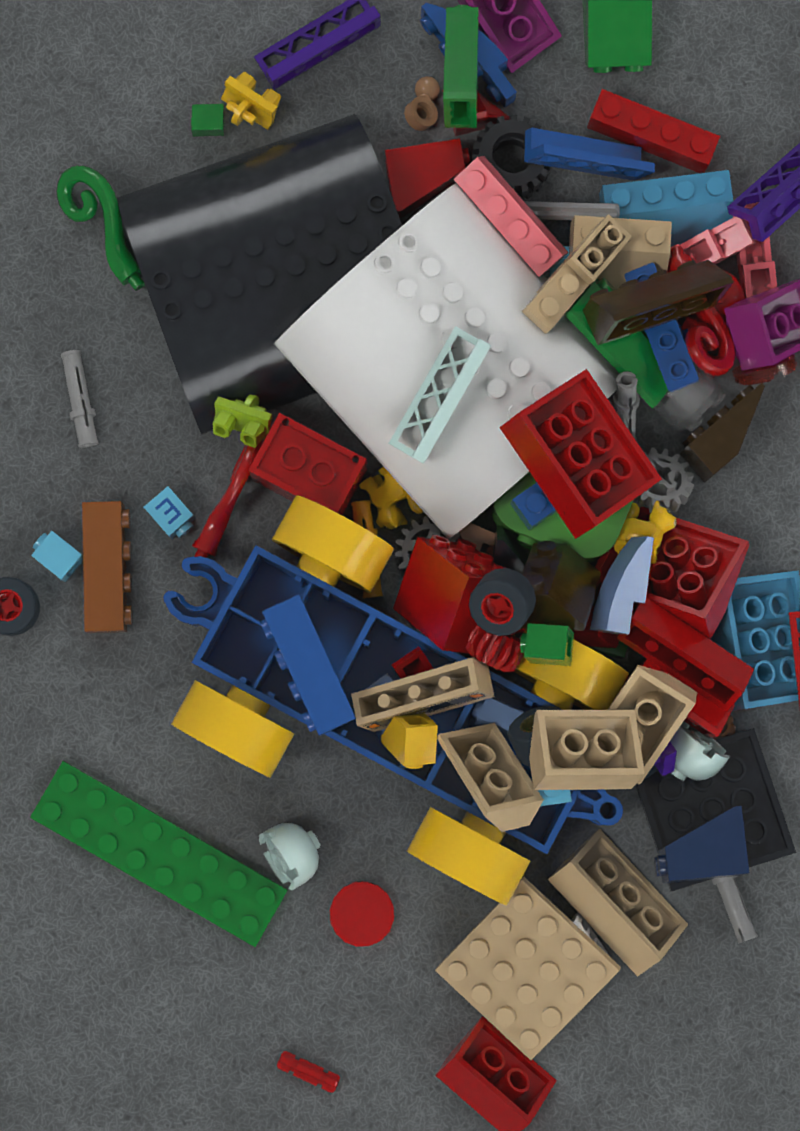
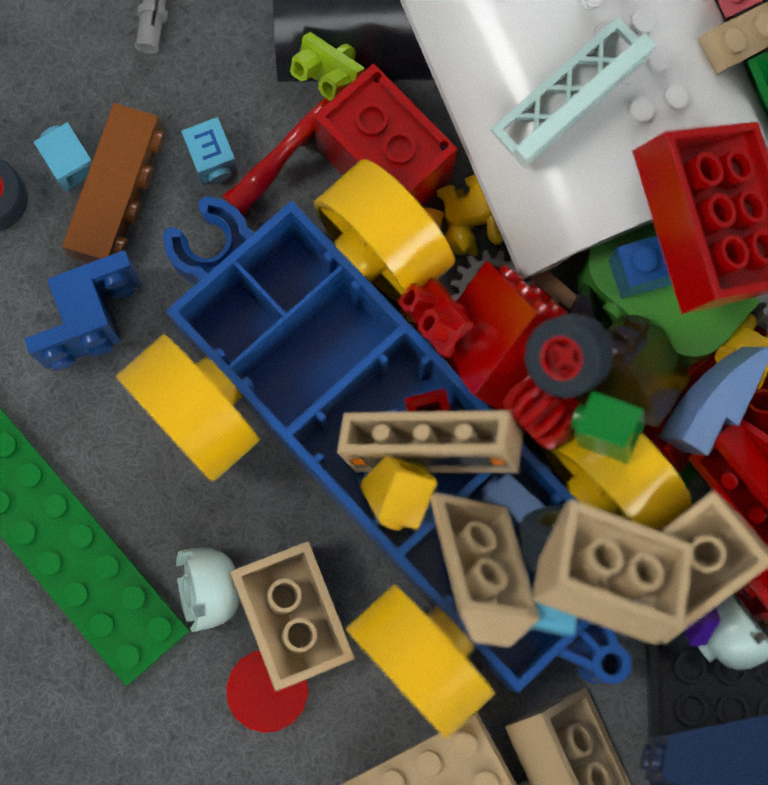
camera: 20 degrees right, 5 degrees down
(122, 676) = (84, 311): none -> blue bracket
(308, 664) = (303, 356): blue brick -> none
(362, 853) = (292, 616): none -> tan slope
(398, 598) = (437, 315): none -> red hips

